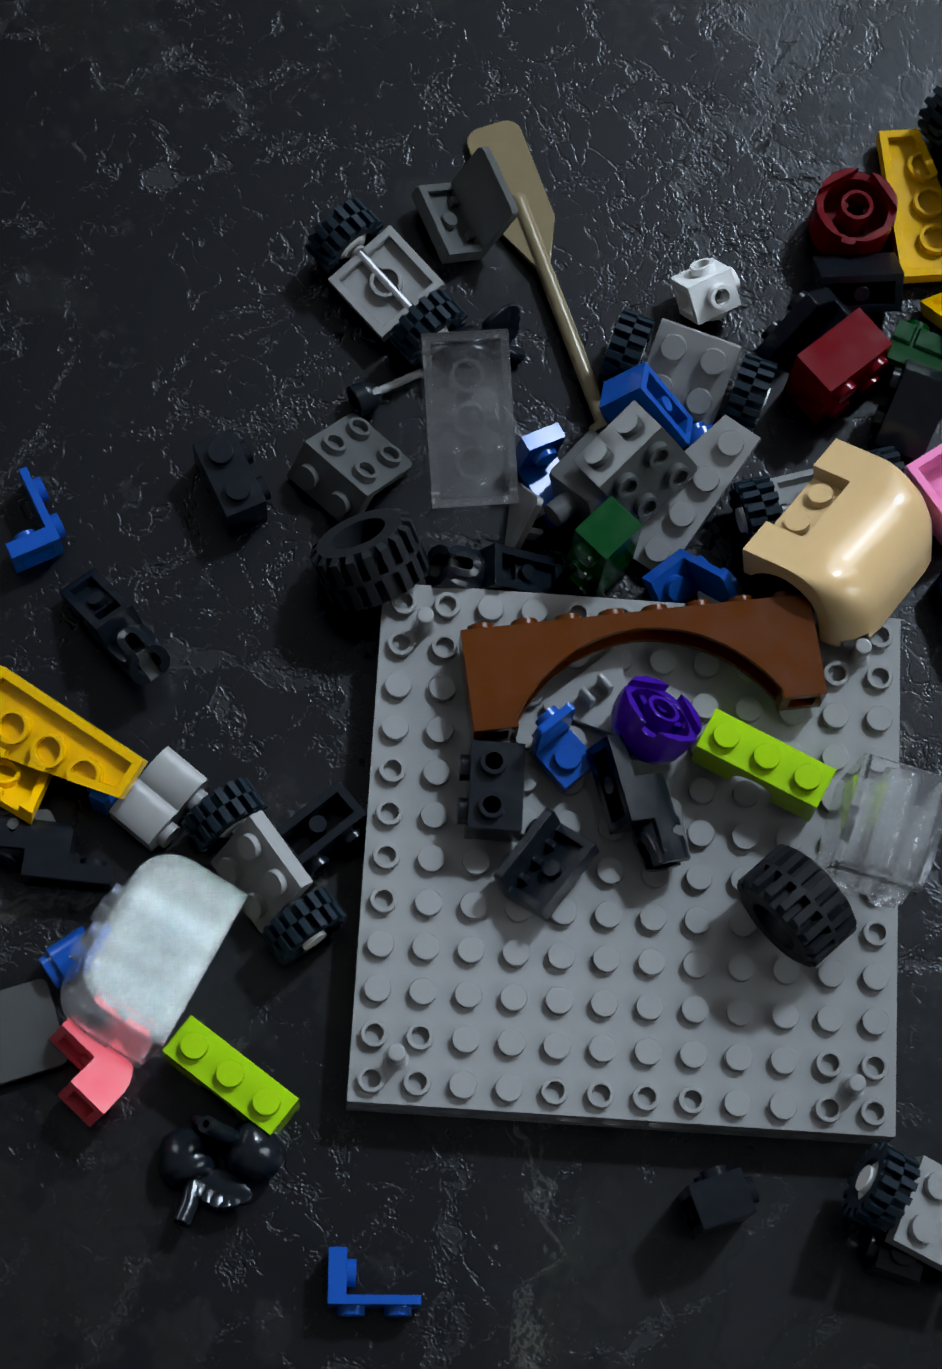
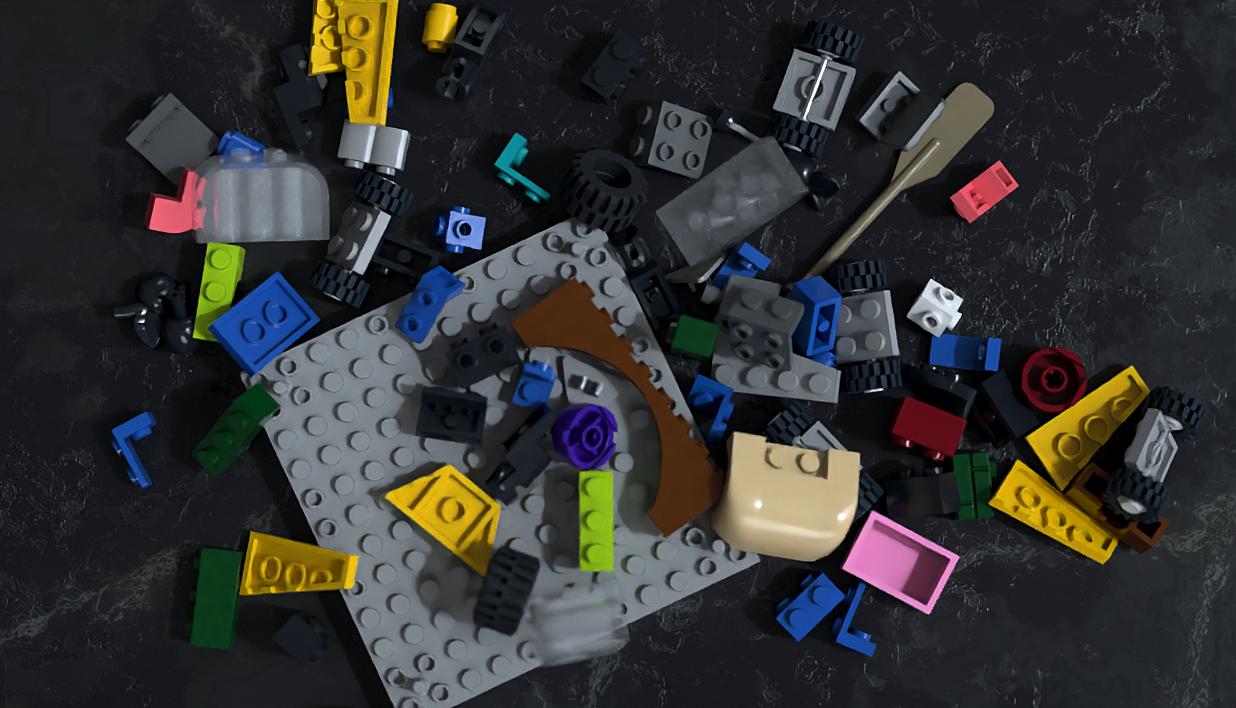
camera: 65 degrees right, 15 degrees up
(65, 648) = (440, 27): none -> yellow brick
(266, 644) = (515, 154): none -> teal bracket
(303, 1039) = (263, 324): none -> blue plate
(320, 752) = (458, 230): none -> blue brick
(395, 823) = (427, 302): none -> blue bracket
(416, 1141) = (235, 429): none -> dark green brick
(603, 177) = (983, 192): none -> coral brick
(608, 1291) = (216, 598): none -> dark green brick
(620, 1169) = (289, 566): none -> yellow wing
(663, 929) = (453, 513): none -> yellow wing
(775, 285) = (965, 352): none -> blue bracket

